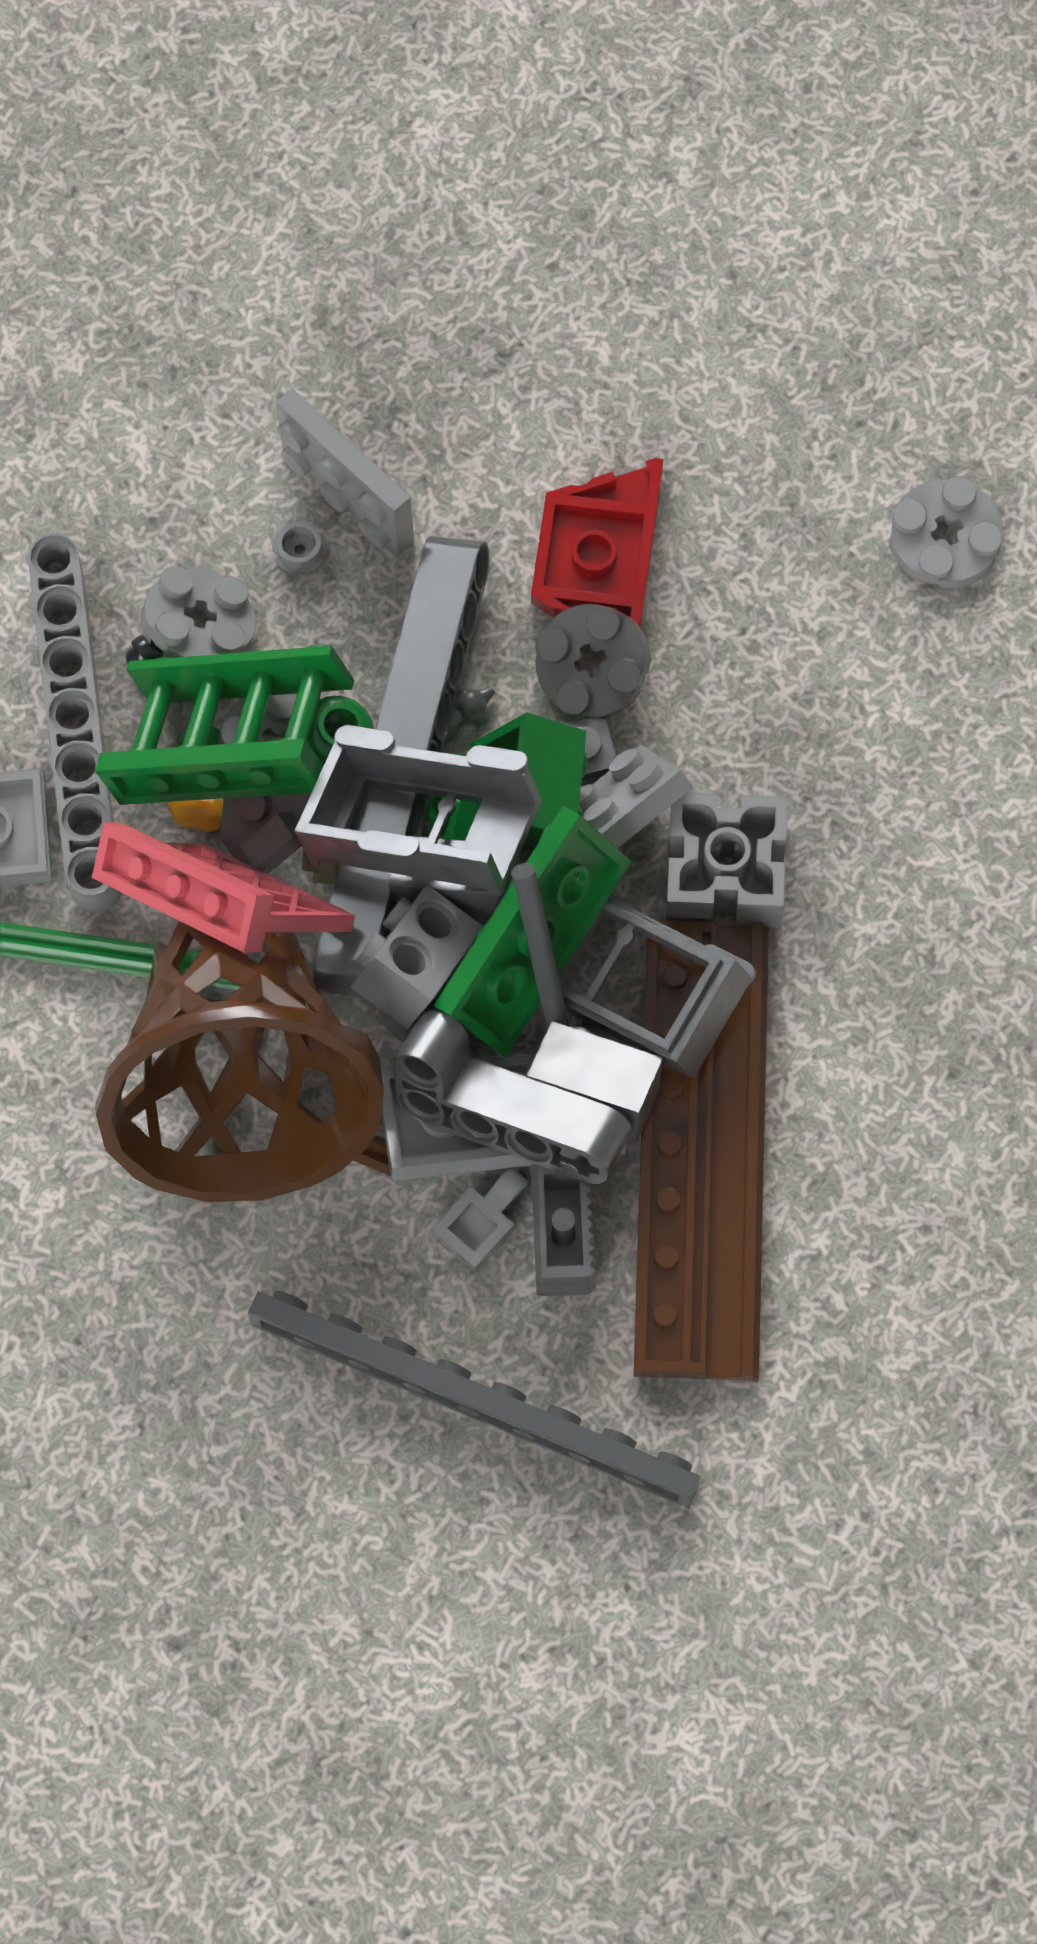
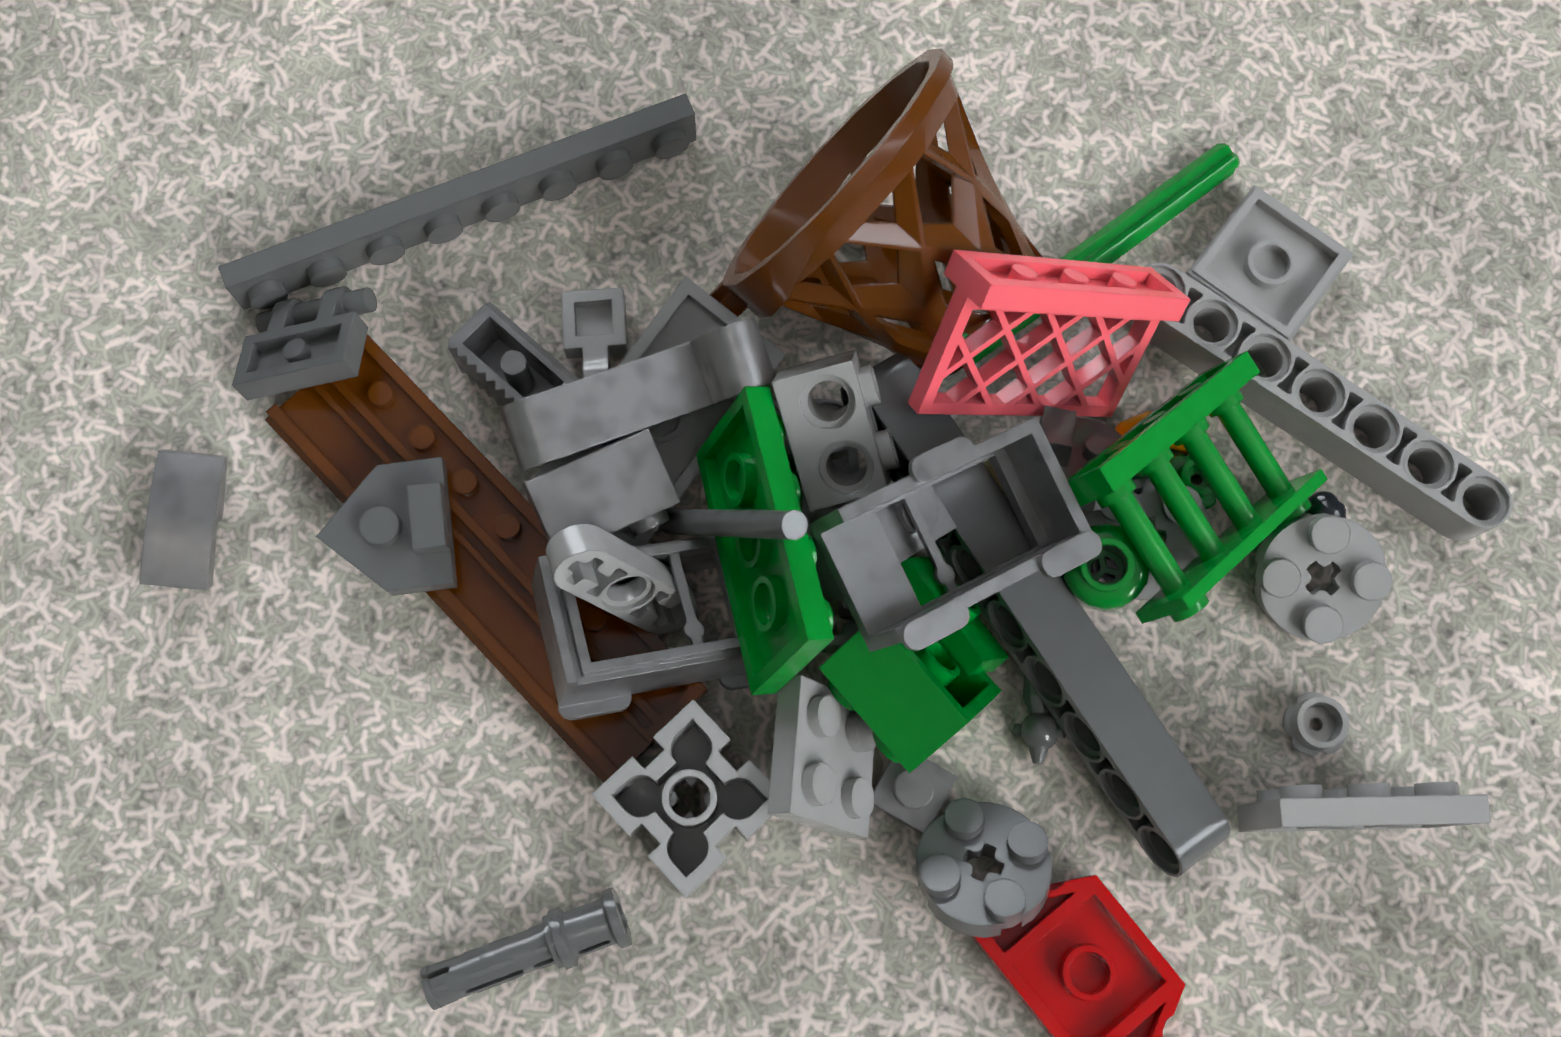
camera: 125 degrees right, 5 degrees up
(640, 1008) = (571, 566): none -> light grey beam
(693, 1379) = (305, 343): none -> dark grey plate
(740, 1199) = (398, 528): none -> dark grey plate
(873, 1355) = (183, 520): none -> flat silver slope
(886, 868) = (557, 941): none -> dark grey pin

